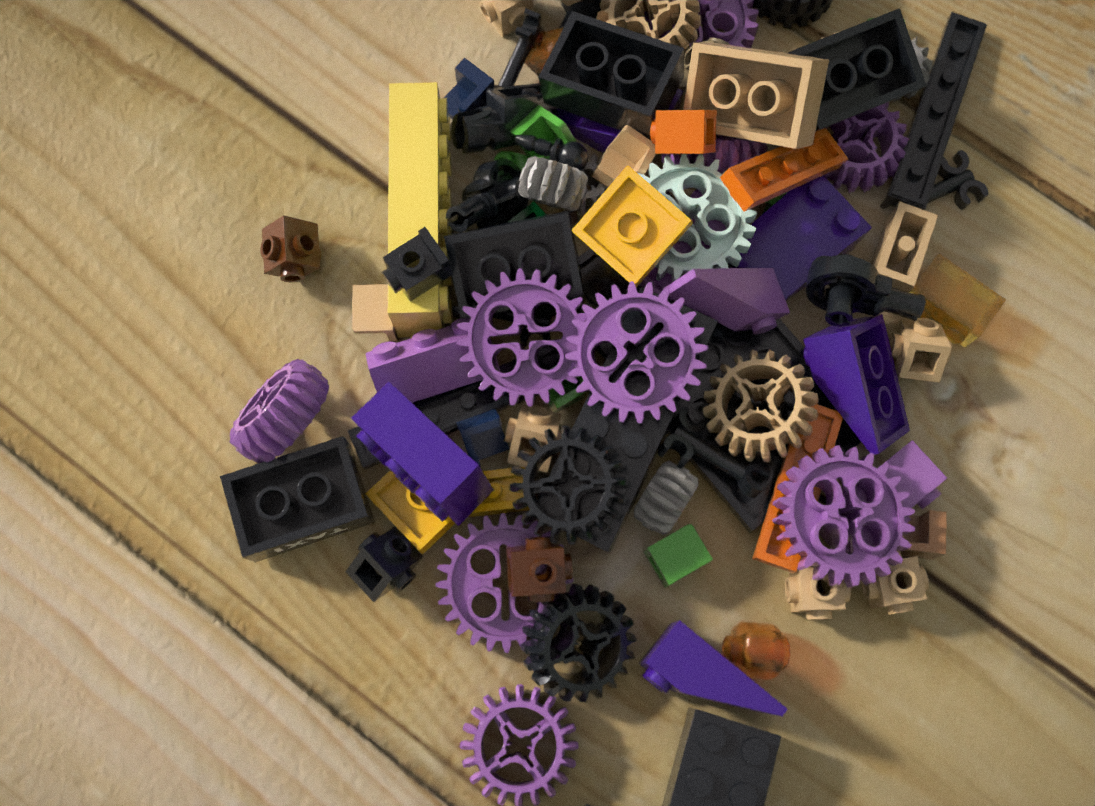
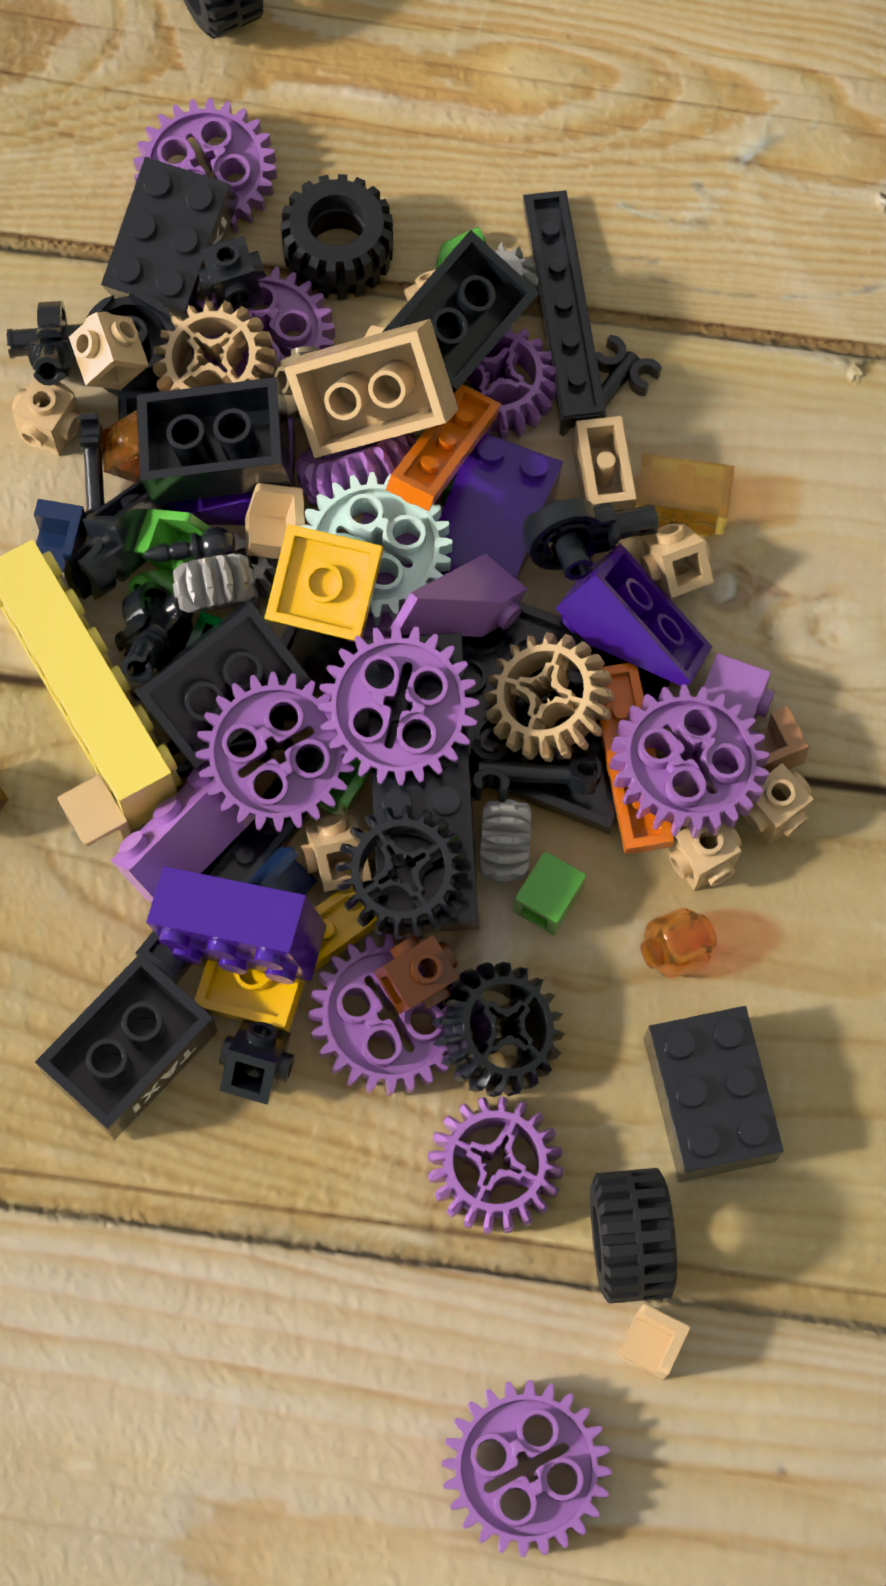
camera: 30 degrees left, 5 degrees down
(279, 411) = (57, 965): medium lavender gear -> none
(416, 280) = (131, 752): black brick -> none
(684, 131) = (323, 461): orange brick -> none
(693, 667) = (633, 989): dark purple slope -> none

